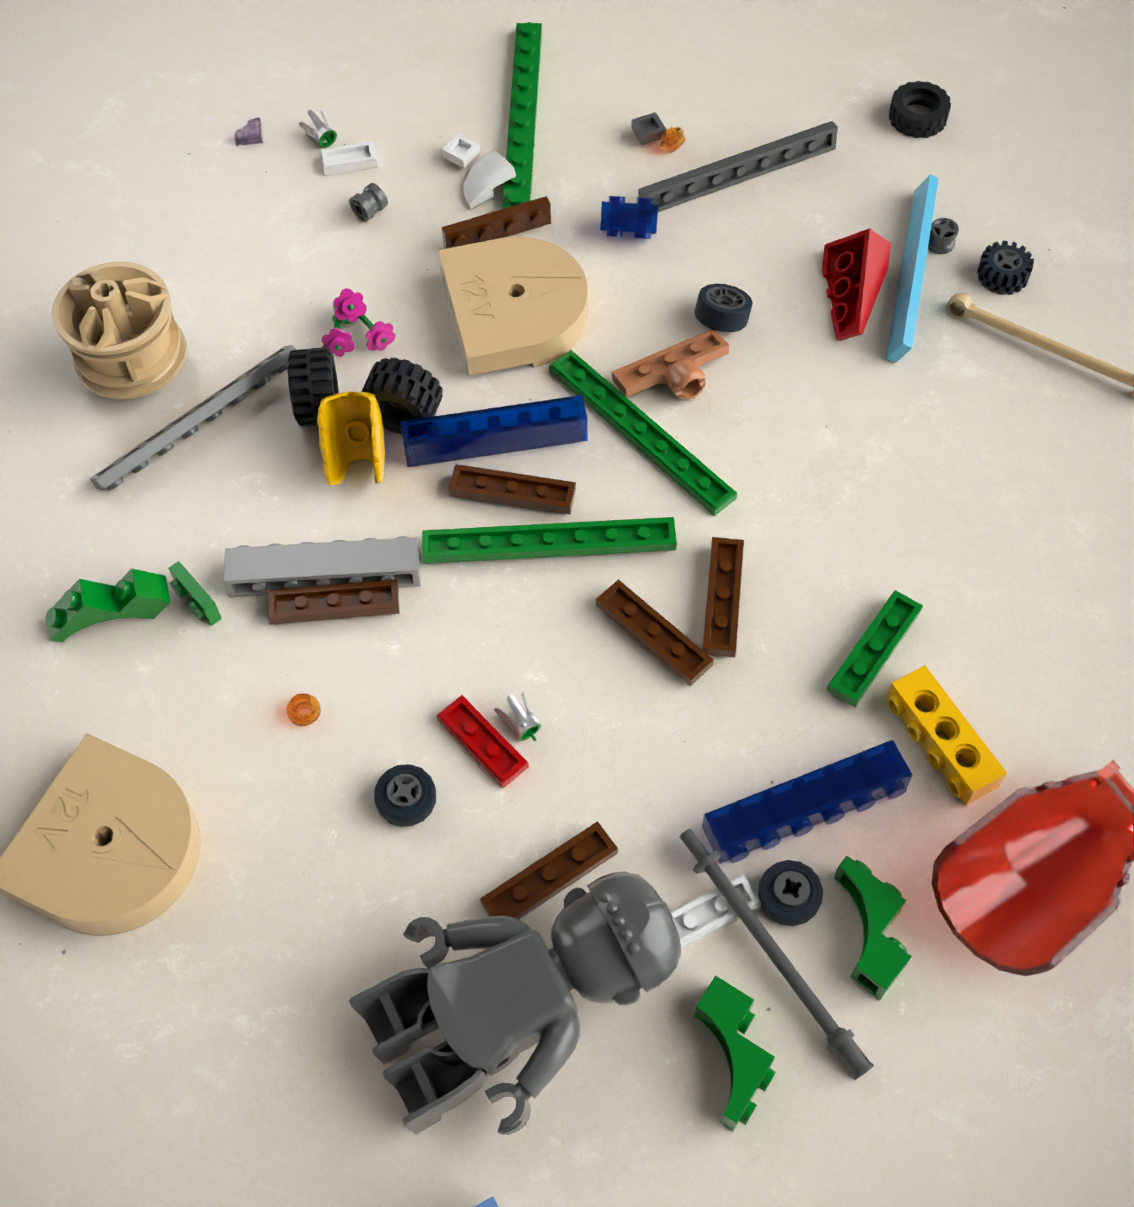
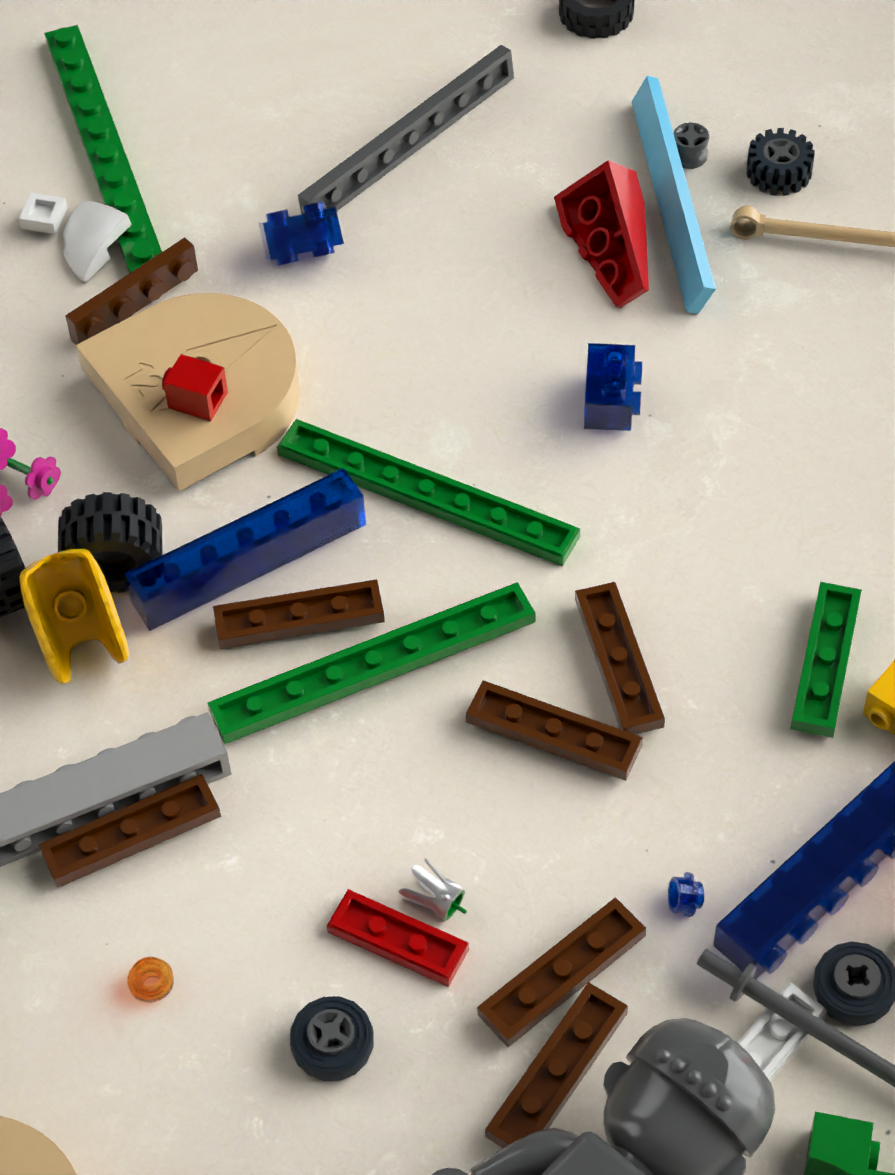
camera: 20 degrees left, 5 degrees down
(503, 304) = (195, 387): none -> red brick
(583, 806) = (561, 972): none -> reddish brown plate
(648, 128) = (273, 117): dark grey plate -> none
(672, 139) = (309, 122): clear orange plate -> none
(673, 366) = (435, 399): nougat plate -> none
(695, 783) = (685, 894): none -> clear blue plate
(723, 307) = (466, 309): black wheel -> none
(802, 396) = (610, 387): none -> clear blue brick

